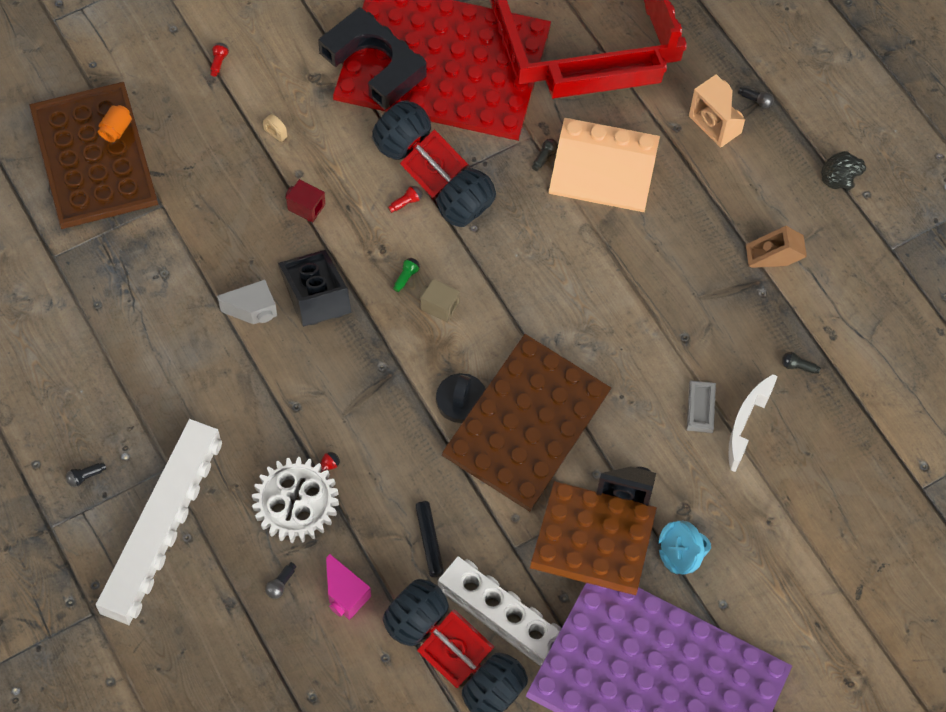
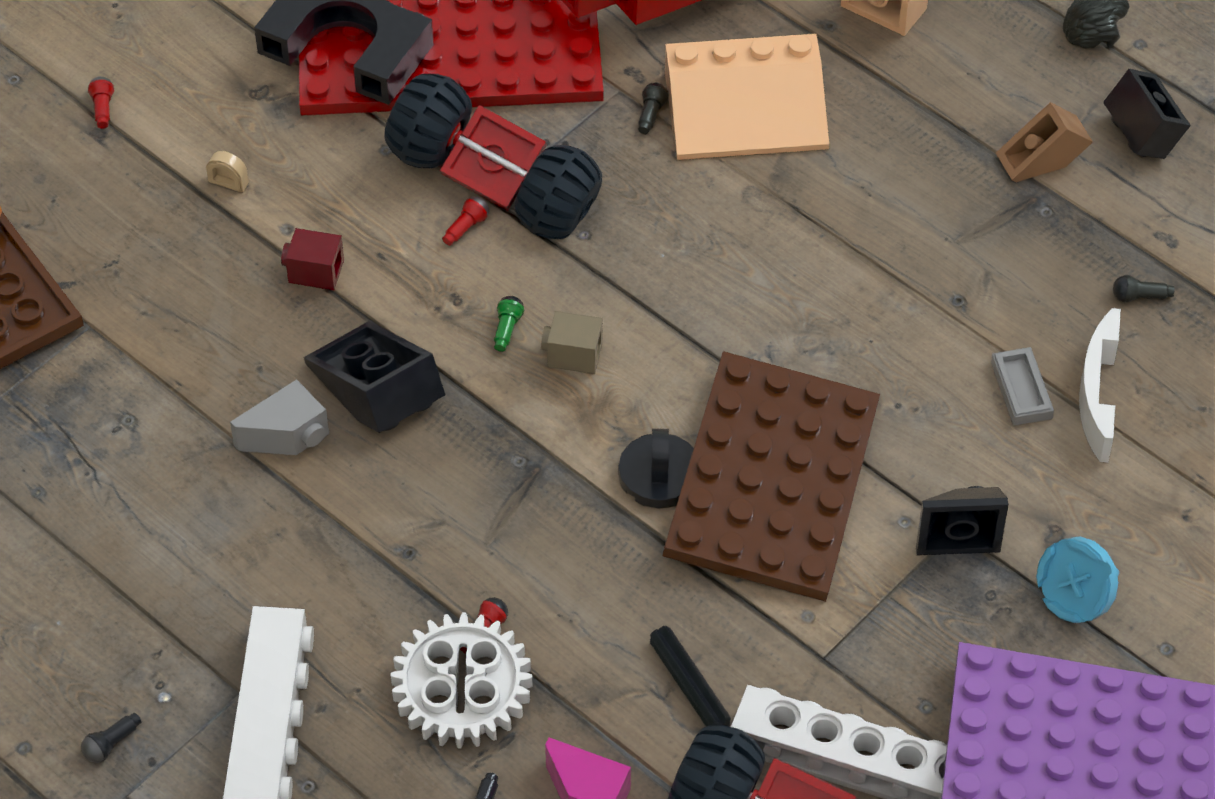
camera: 15 degrees left, 10 degrees down
(594, 538) = (942, 604): dark orange plate -> none
(848, 247) = (1146, 114): none -> black brick

